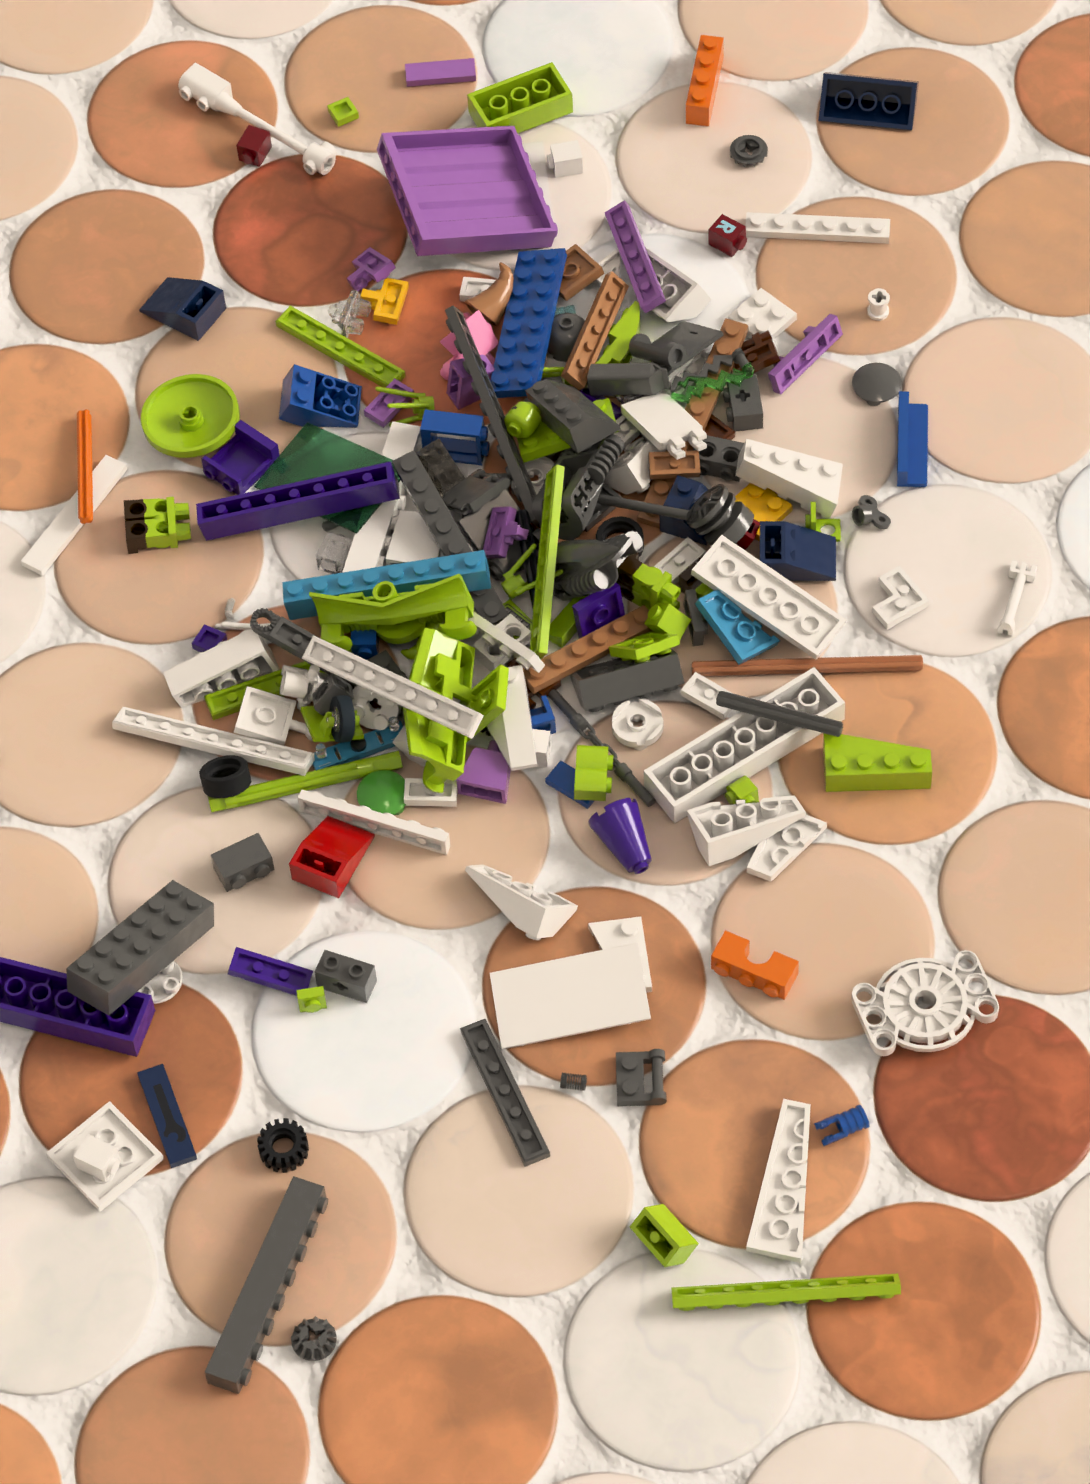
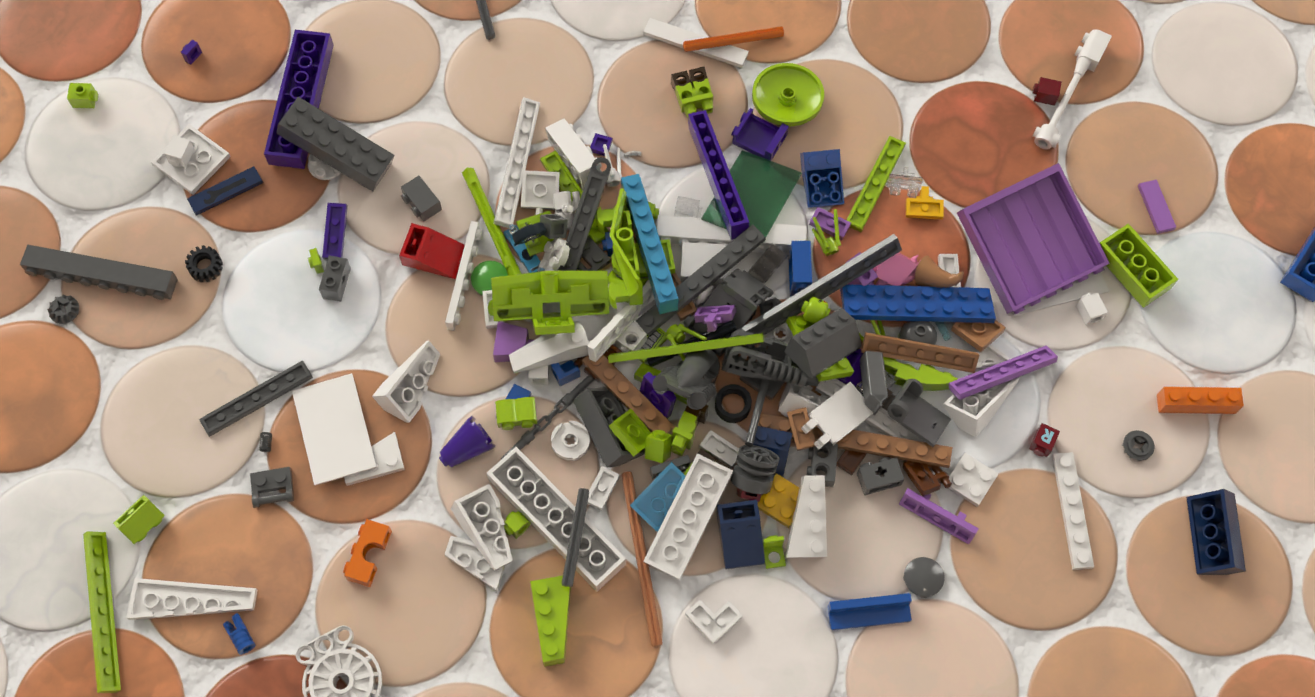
camera: 75 degrees right, 10 degrees up
(186, 305) = (887, 74): dark blue slope -> none
(225, 776) = (479, 181): black tyre -> none
(343, 111) = (1097, 145): lime plate -> none
(370, 266) = (949, 190): medium lavender hinge -> none
(393, 687) = (549, 258): white tile -> none
(703, 381) = (885, 438): clear neon green piece -> none
(867, 513) = (793, 587): dark grey piece -> none
(878, 306) = (997, 571): white bush -> none

